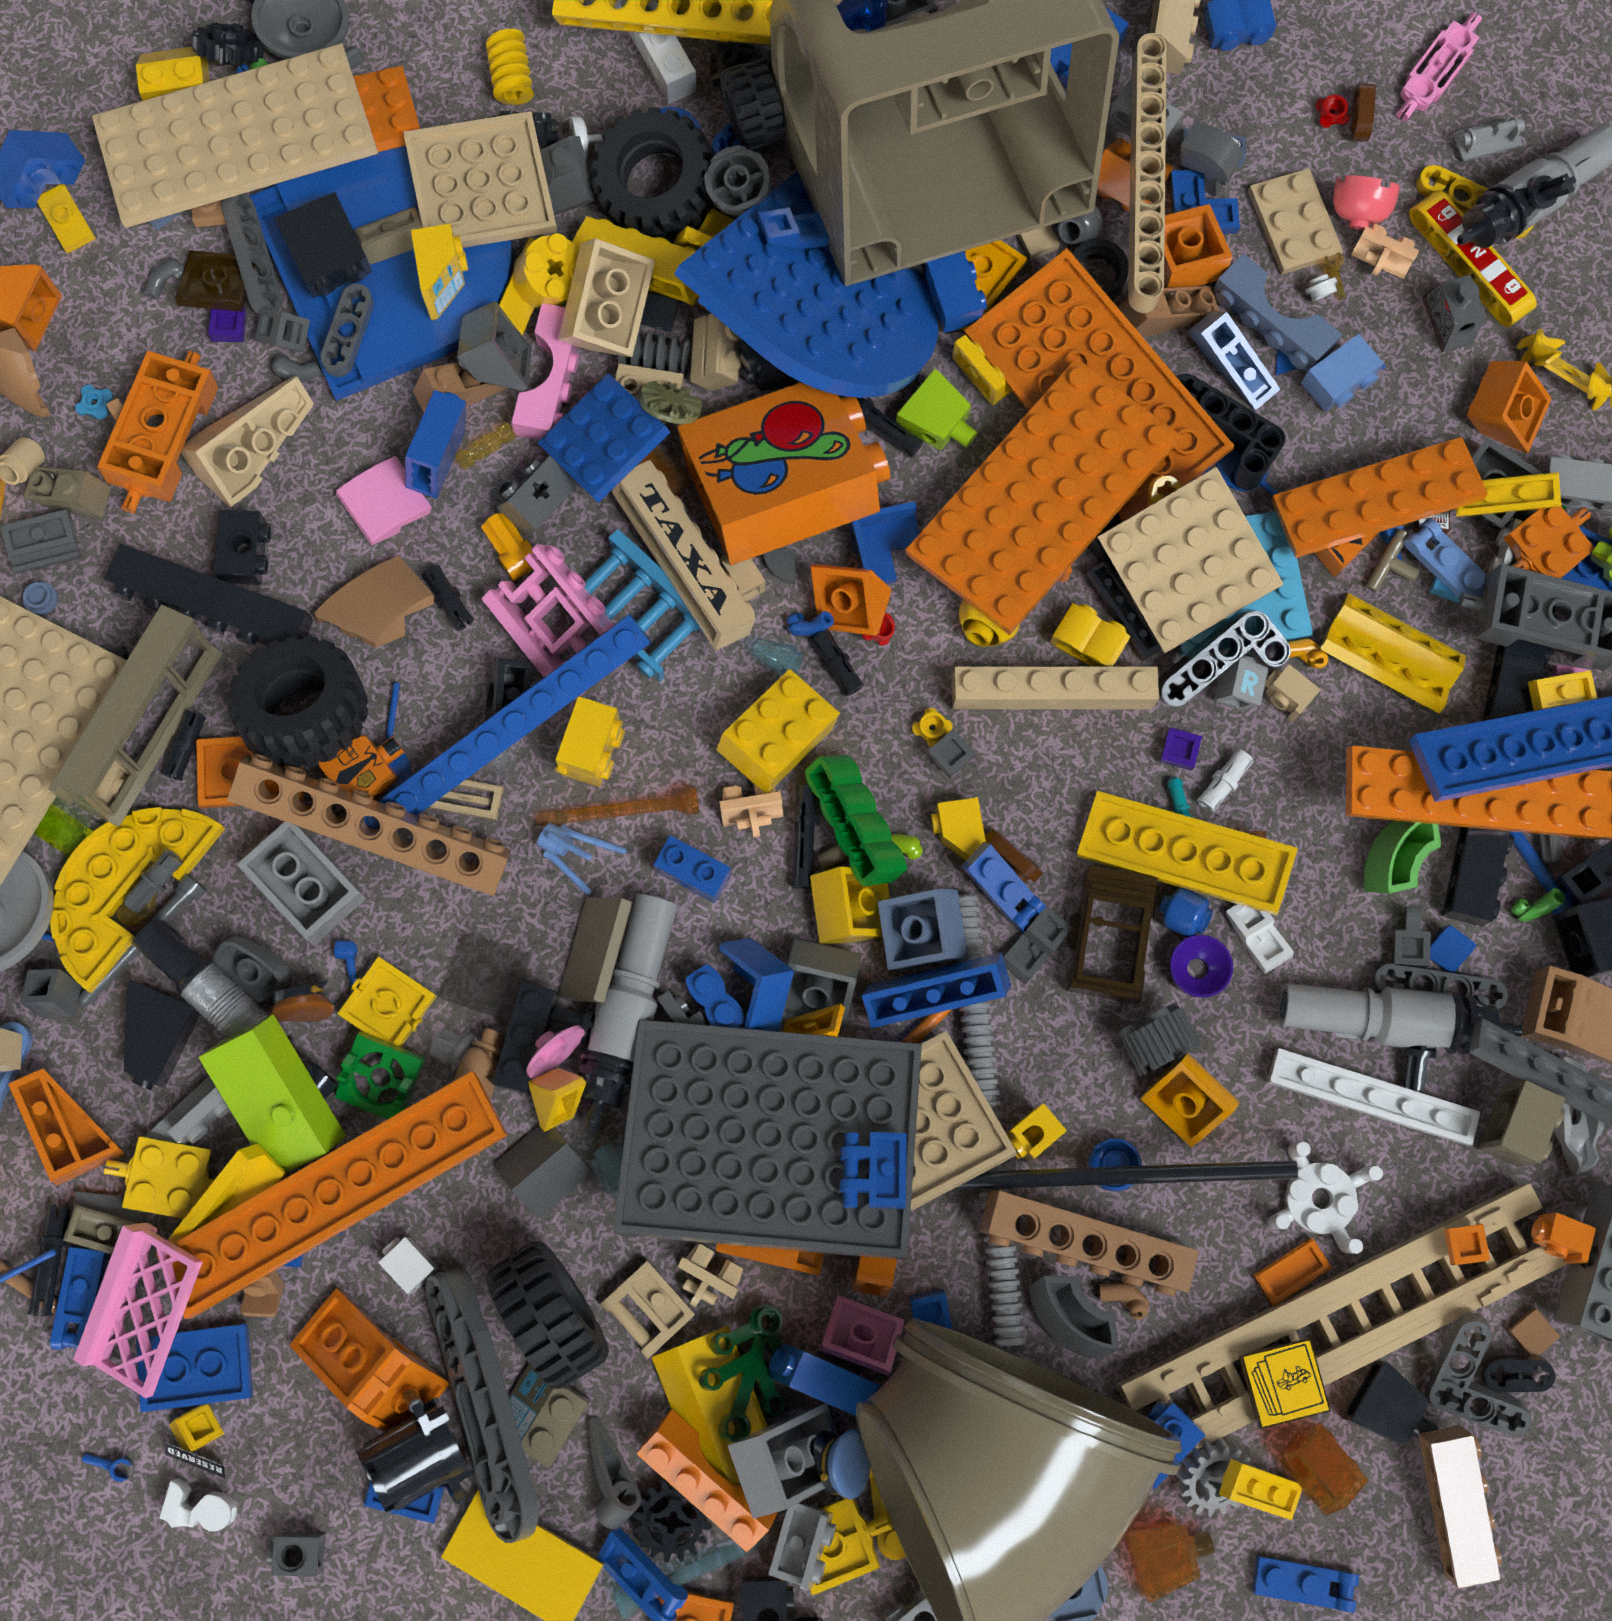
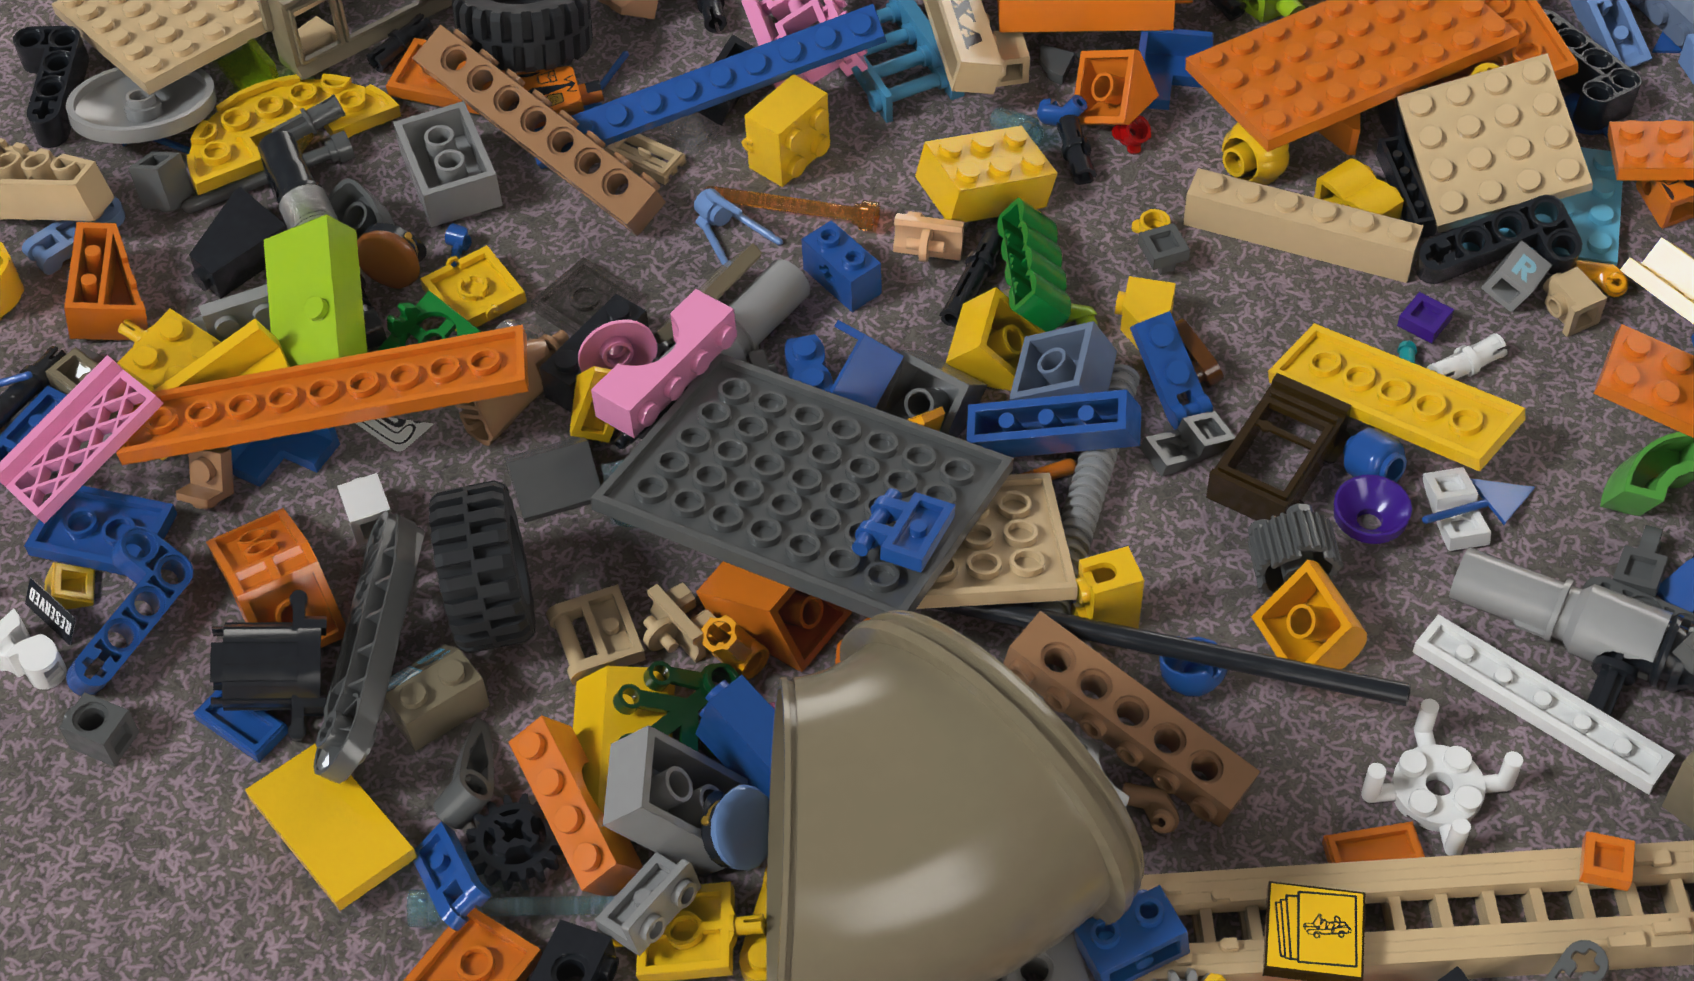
camera: 30 degrees right, 25 degrees down
(262, 1451) = (126, 619): none -> blue beam
(597, 1106) = (637, 394): none -> bright pink arch
(766, 1290) = (734, 646): none -> light orange piece
(1291, 914) = (1500, 497): none -> piece

